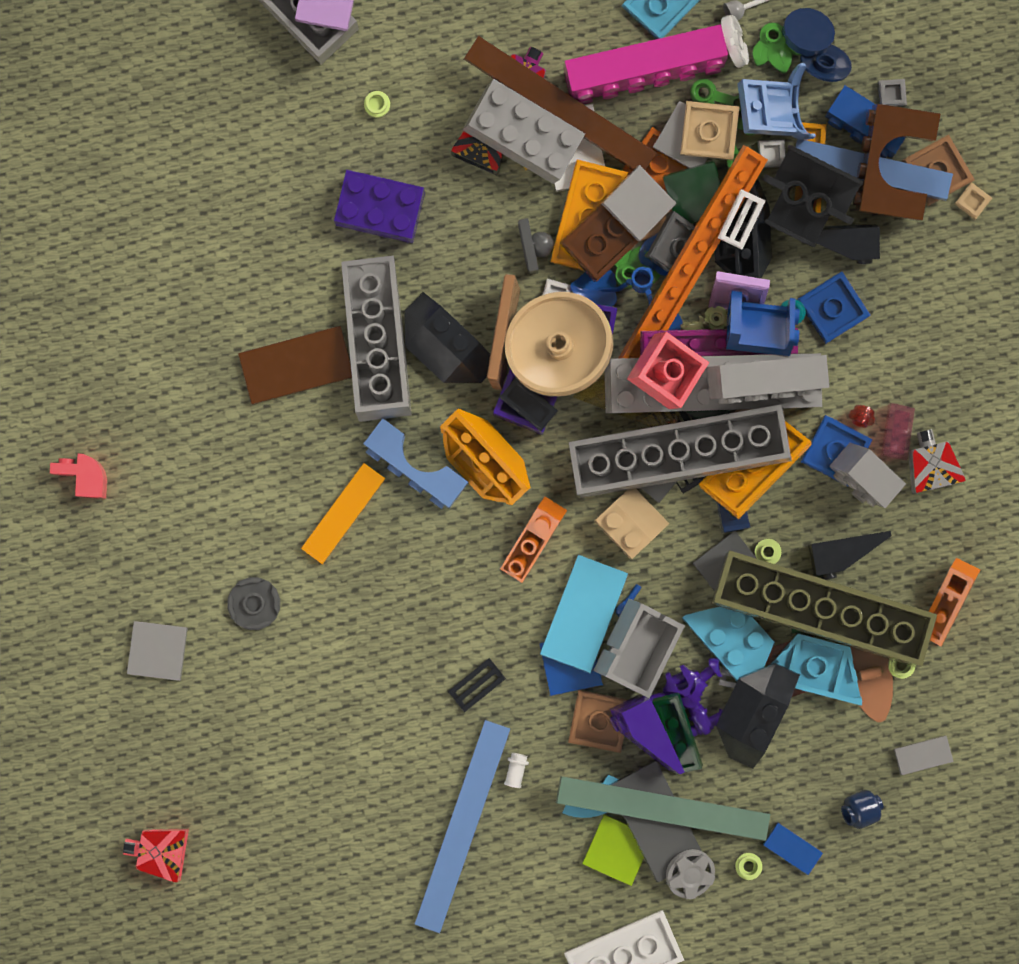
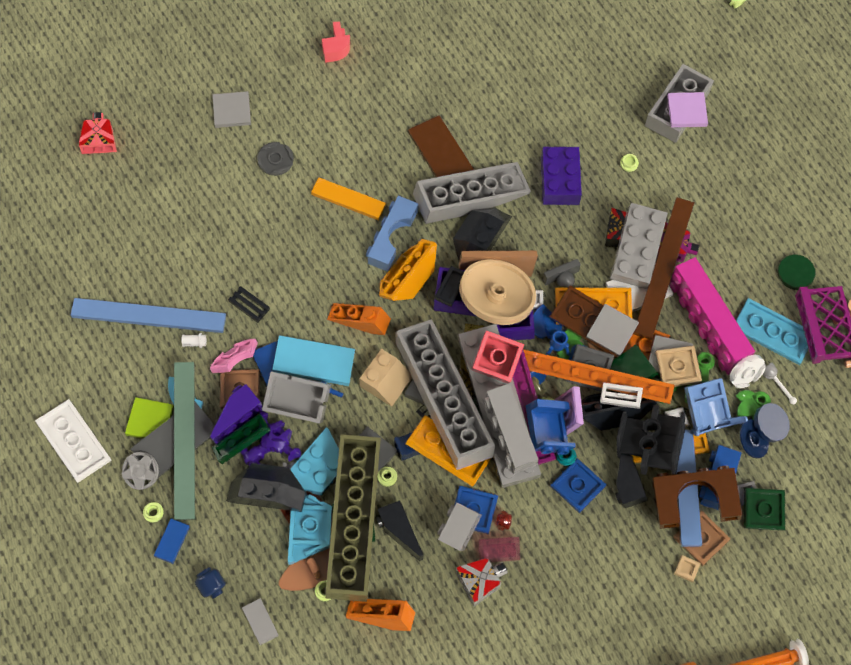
camera: 70 degrees right, 20 degrees down
(551, 720) = (227, 360): none -> bright pink tile
(920, 79) = (764, 509): none -> dark green tile

